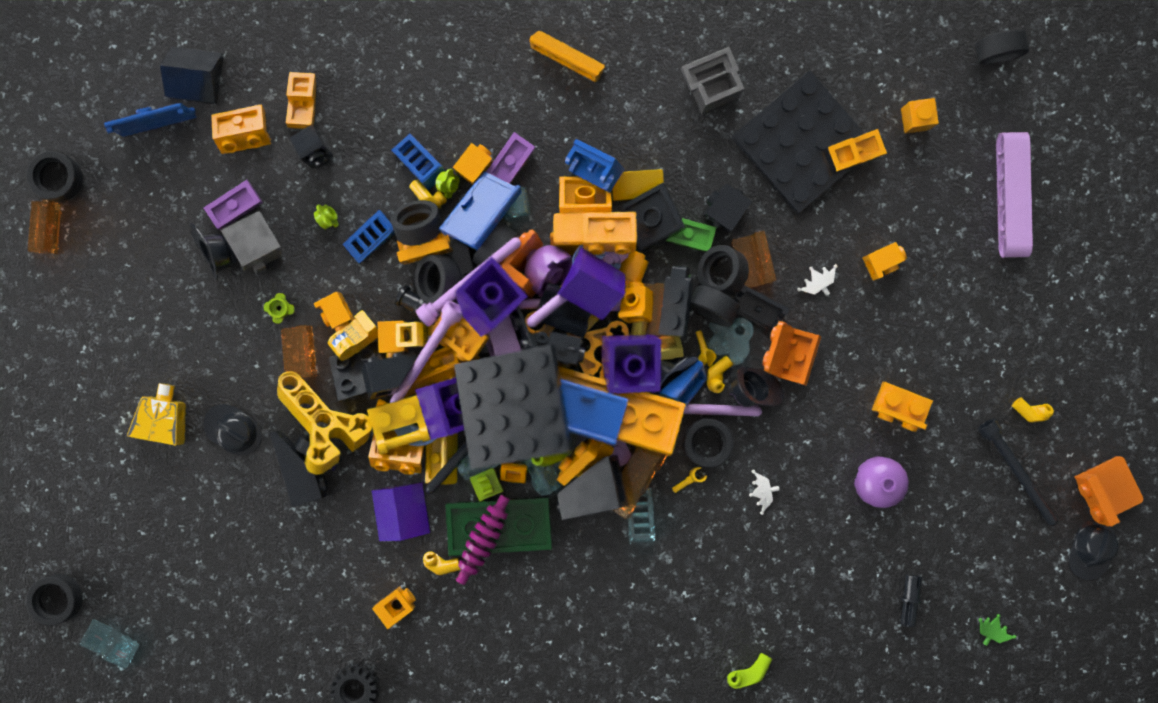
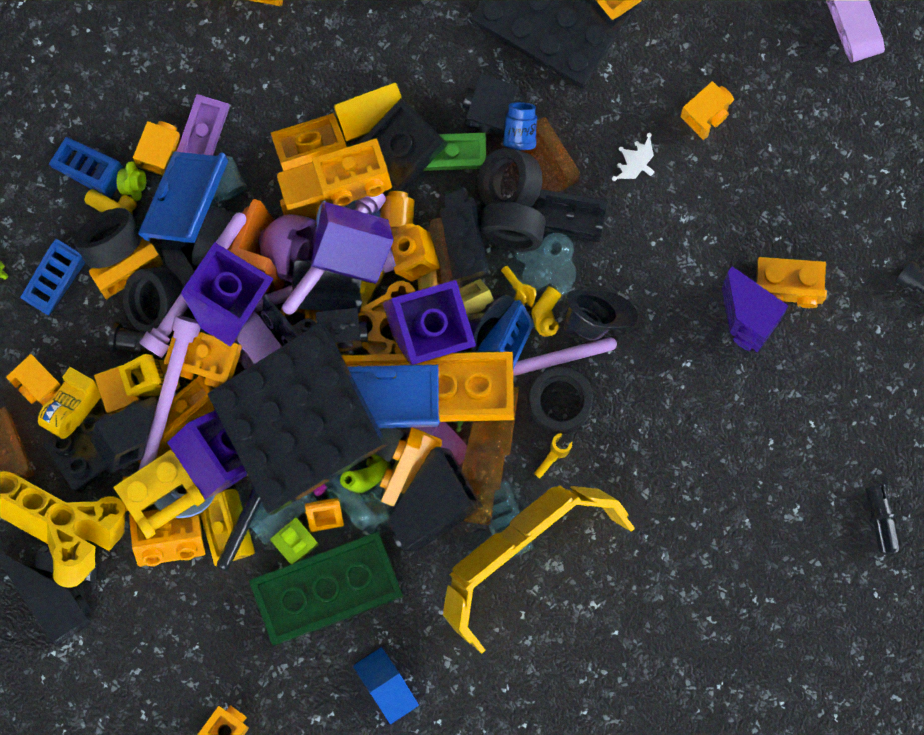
camera: 15 degrees left, 10 degrees down
(401, 512) = (193, 610): dark purple slope -> none
(439, 565) = (263, 664): yellow arm -> none
(482, 539) = (310, 606): magenta piece -> none
(519, 606) = (386, 685): none -> blue slope
(594, 166) = (309, 103): blue hinge -> none
(645, 539) = (517, 535): none -> yellow windscreen
(744, 233) = (520, 126): none -> blue piece
(750, 676) = (711, 679): lime arm -> none
(763, 491) = (651, 441): white piece -> none
(791, 353) = (627, 256): orange bracket -> none
(867, 423) = (750, 310): none -> dark purple slope
(881, 482) = (796, 383): medium lavender cylinder -> none

